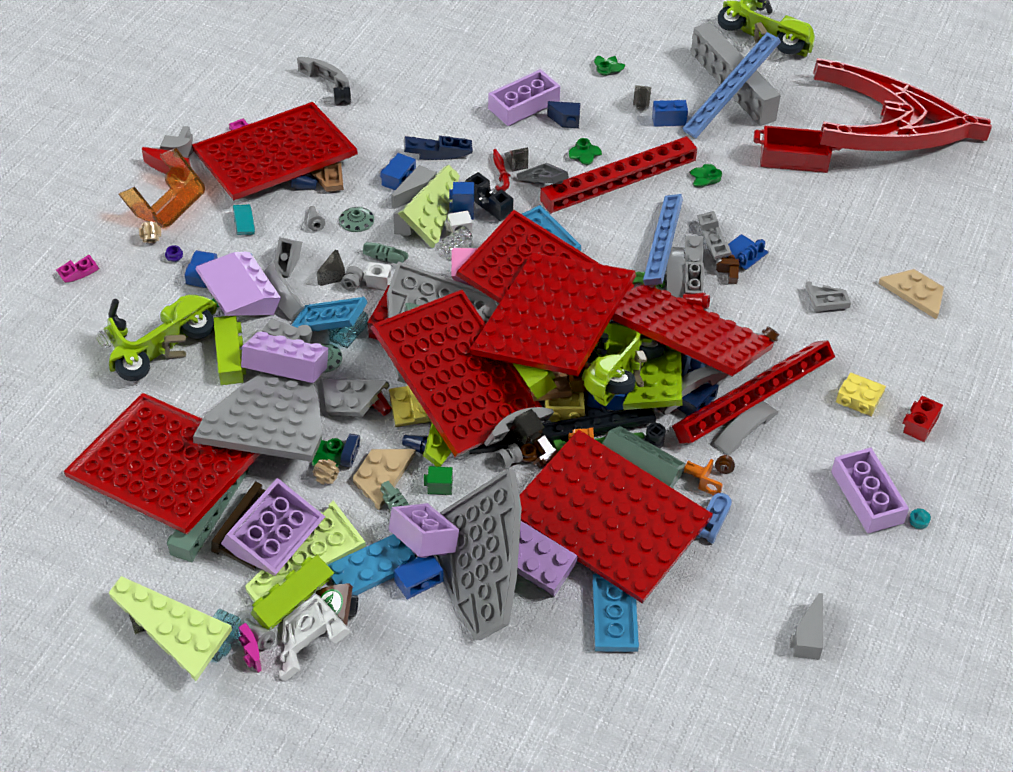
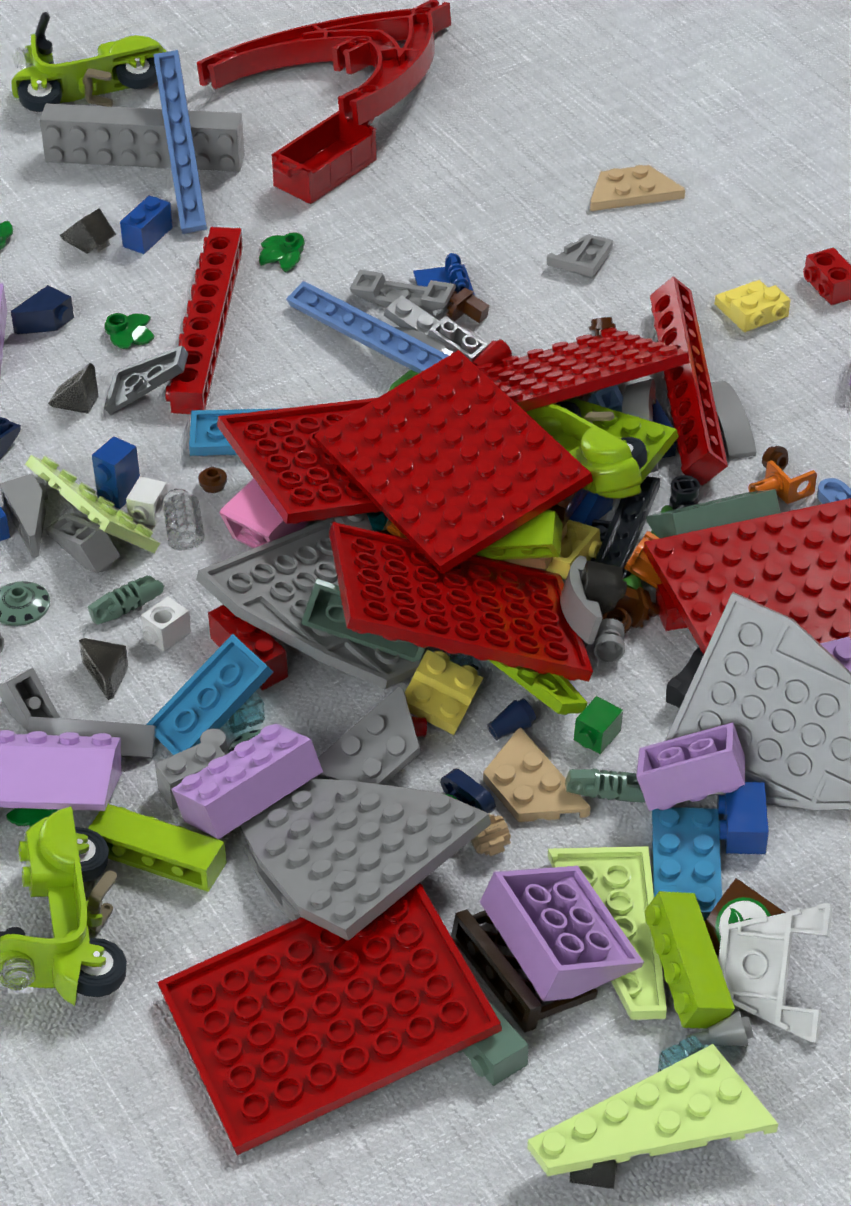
camera: 55 degrees left, 5 degrees down
(250, 646) = (756, 1050): dark pink slope -> none
(352, 278) = (145, 654): light grey wheel -> none
(496, 204) = (153, 446): black arch -> none
(504, 176) = (69, 415): red piece -> none

